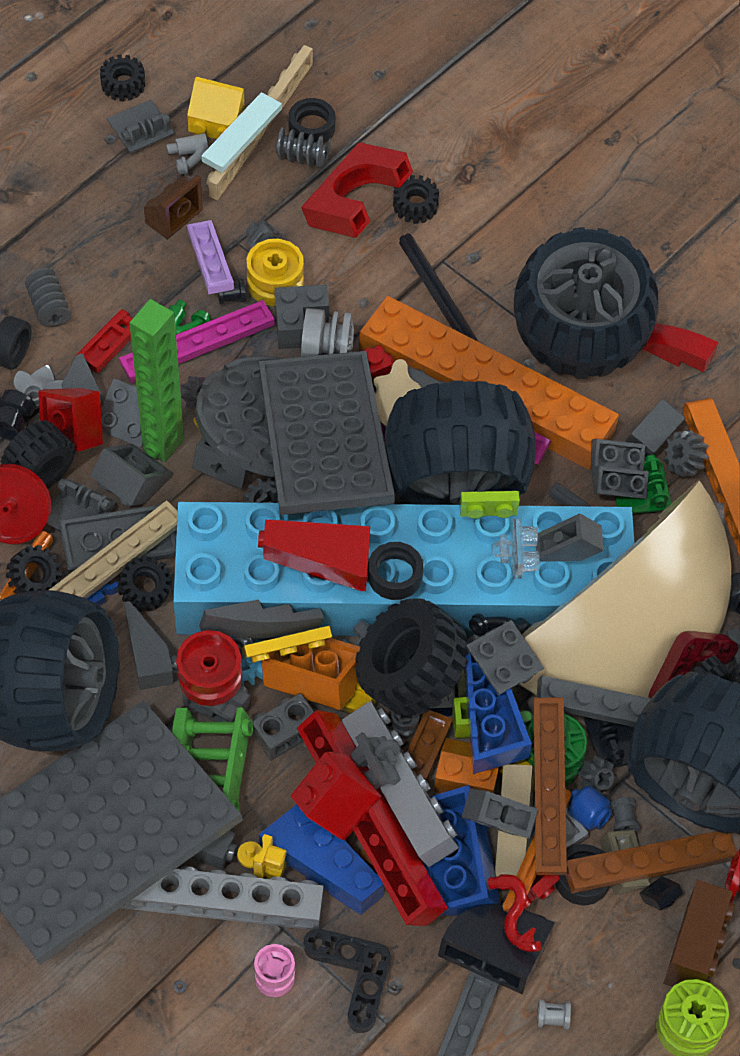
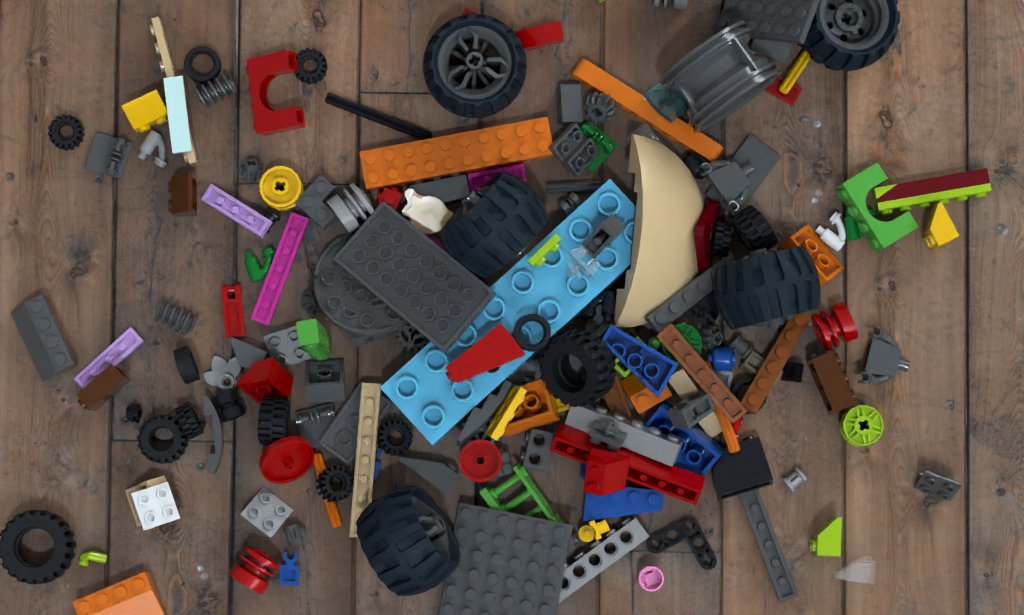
camera: 40 degrees left, 25 degrees up
(505, 657) = (626, 329): dark grey hinge -> none
(526, 941) = (726, 439): red animal -> none

